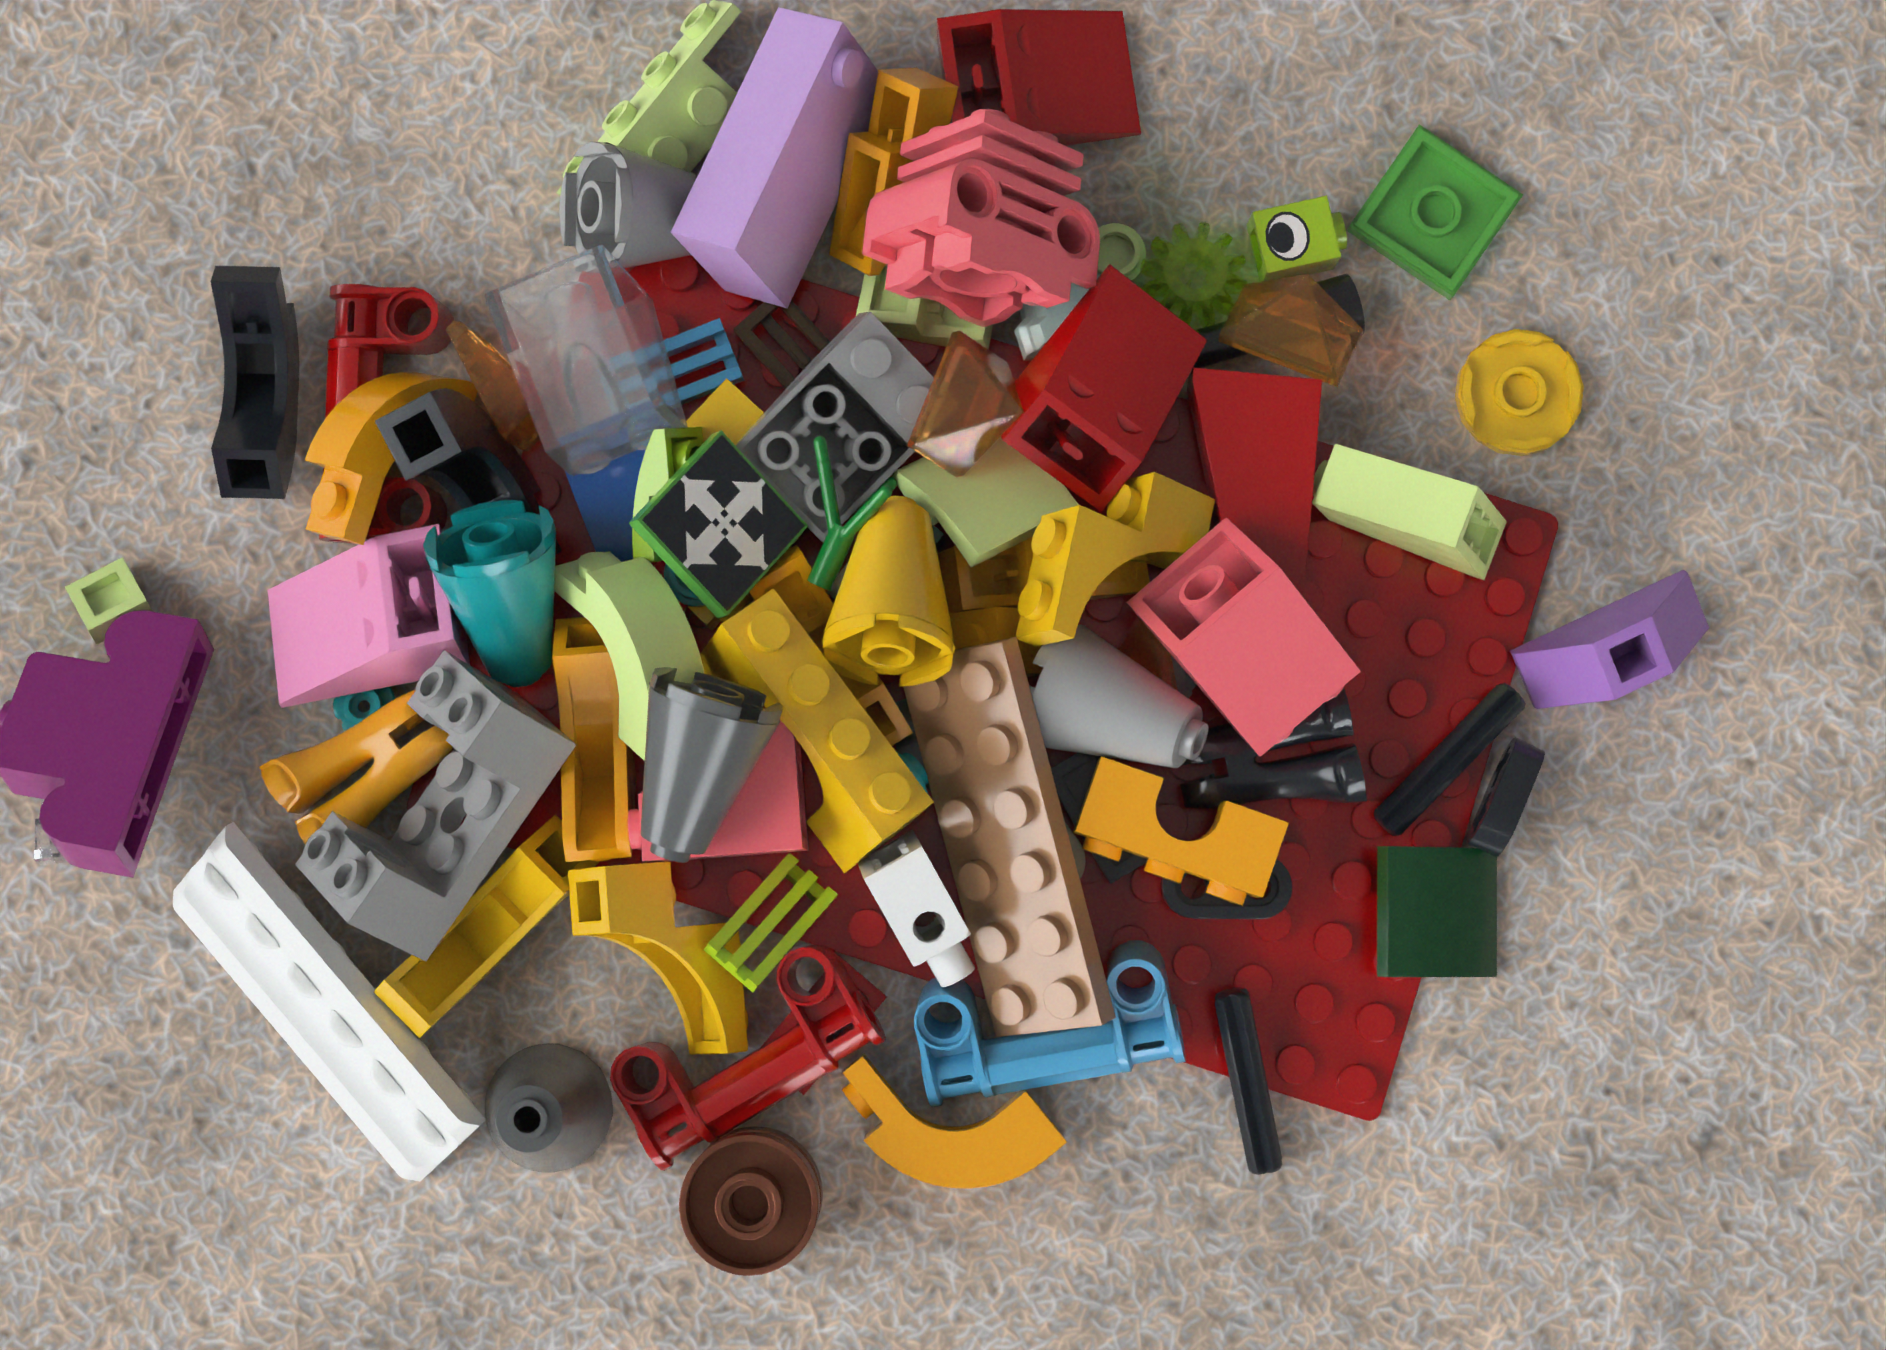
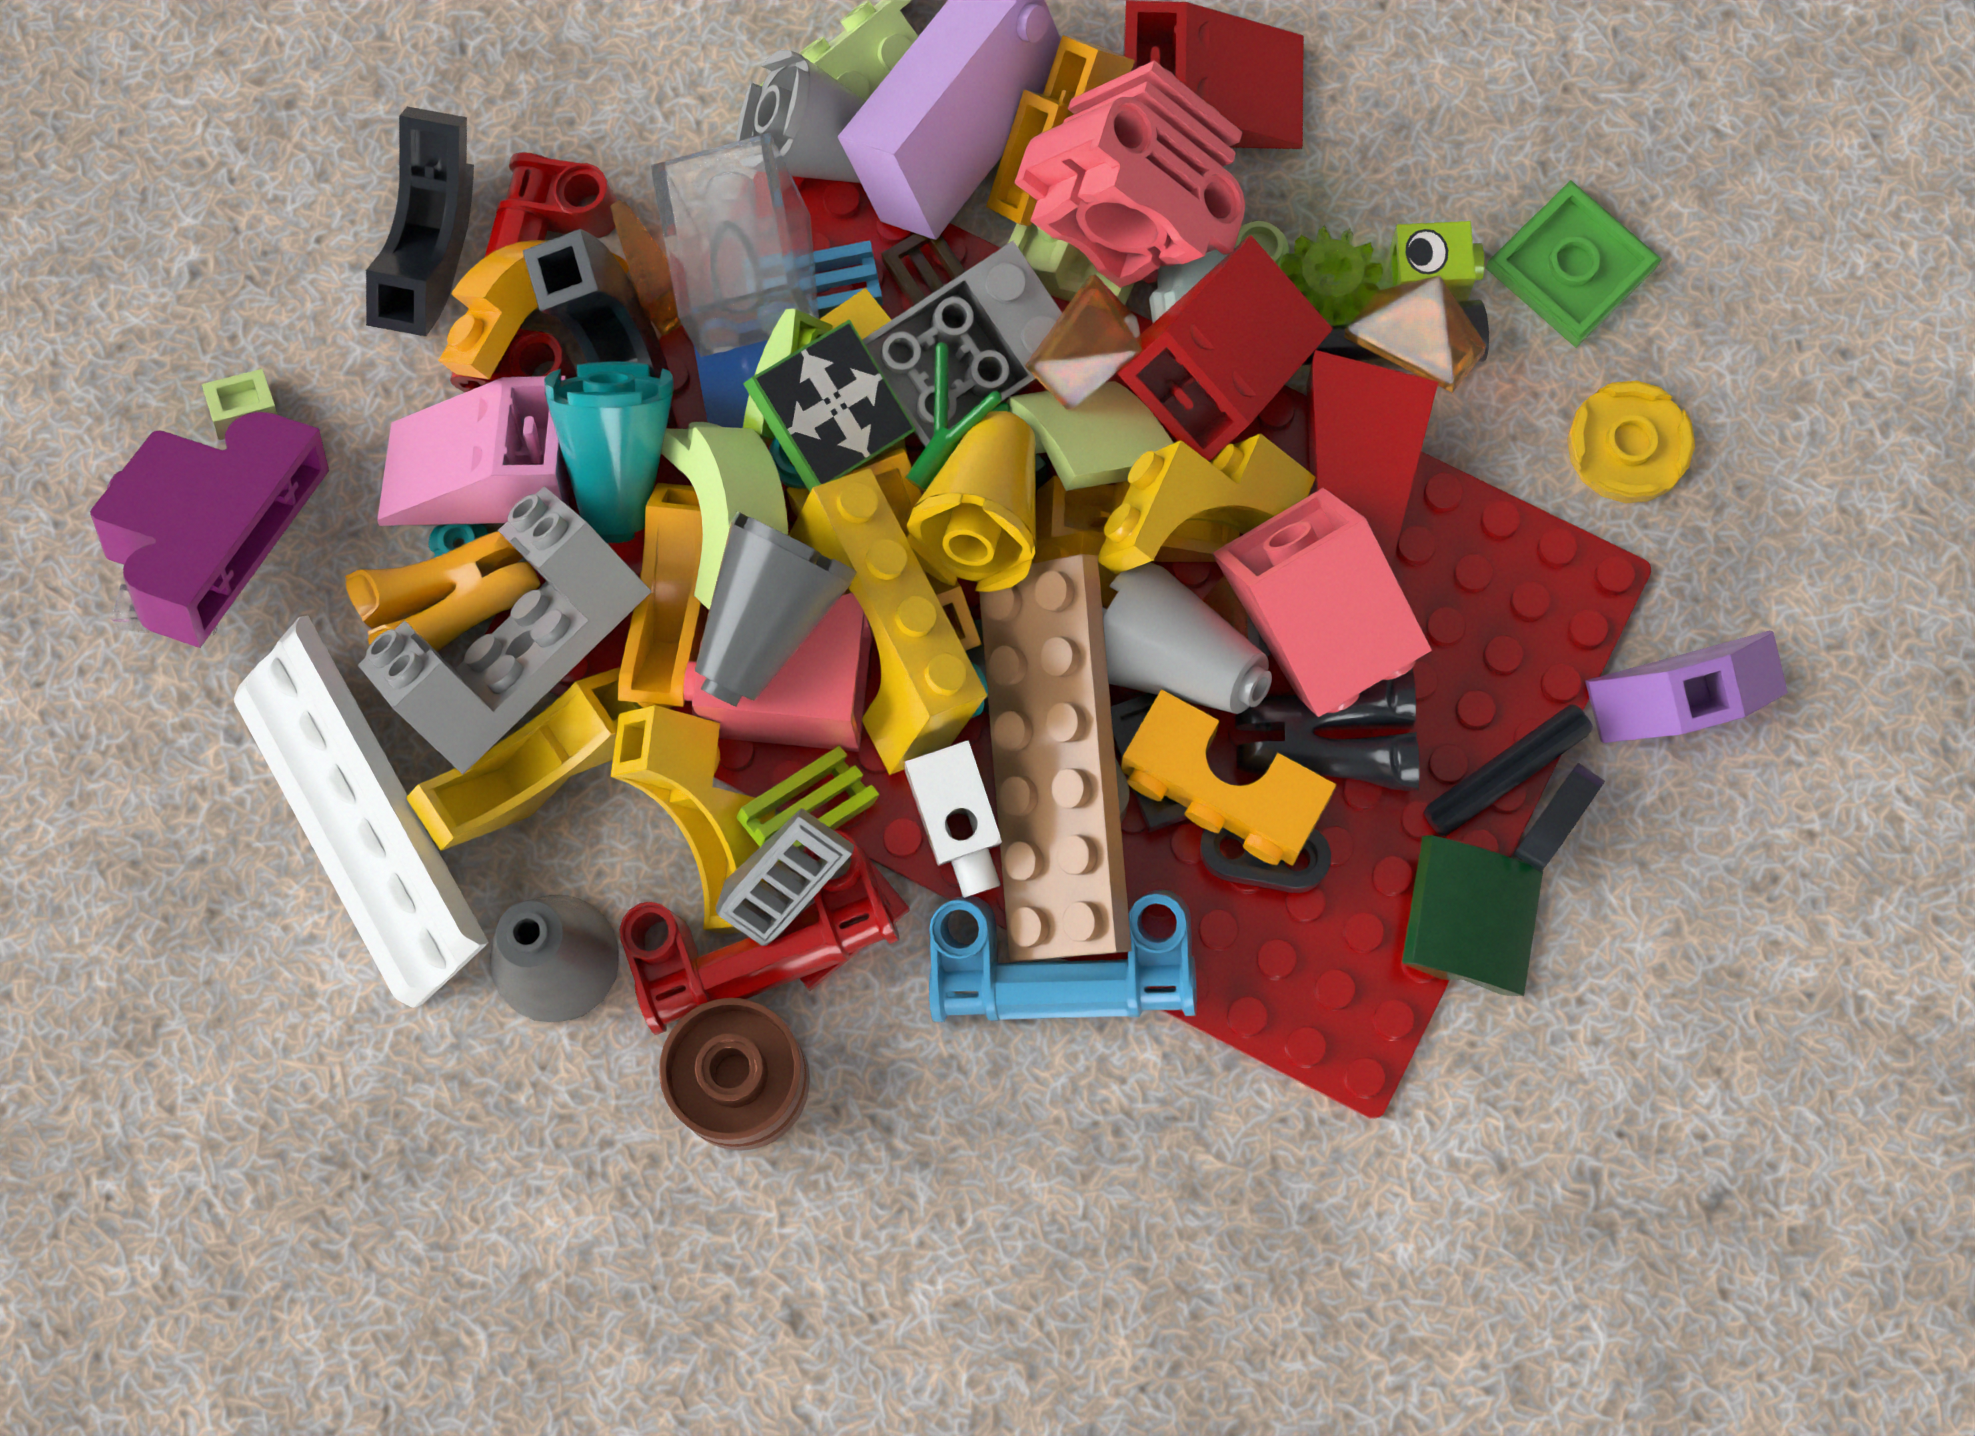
camera: 15 degrees right, 10 degrees down
(759, 1014) = (759, 908): none -> slope
(962, 1157) = (947, 1073): light orange arch -> none
(1248, 1080) = (1255, 1050): black axle -> none
(1410, 509) = (1508, 521): yellowish green slope -> none

